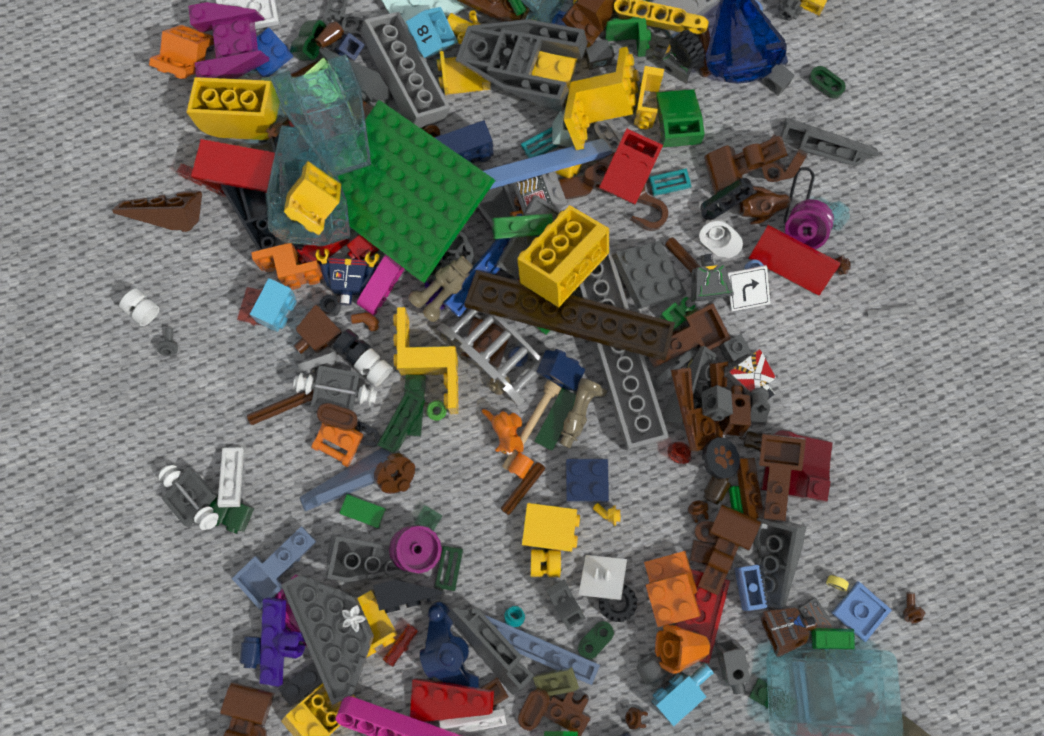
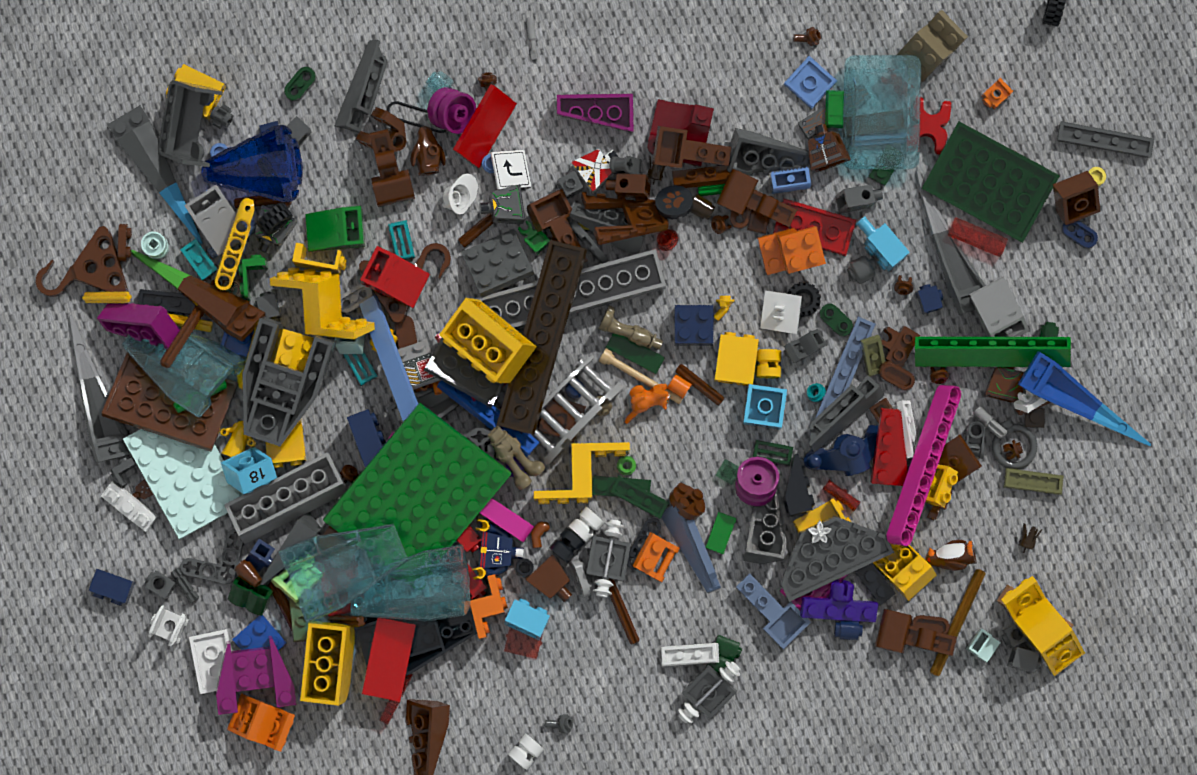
camera: 90 degrees left, 5 degrees up
(312, 198) = (430, 576): yellow bracket -> none
(337, 417) = (635, 555): reddish brown tile -> none
(497, 558) = (764, 406): none -> medium azure brick
(520, 225) = (456, 380): green tile -> none
(561, 369) = (590, 347): dark blue brick -> none
(680, 648) = (843, 244): orange cone -> none
(717, 403) = (625, 204): dark grey brick -> none
(725, 206) = (418, 177): black beam -> none
(819, 381) = (599, 109): none -> magenta wedge
(837, 583) = (785, 102): light yellow tile -> none

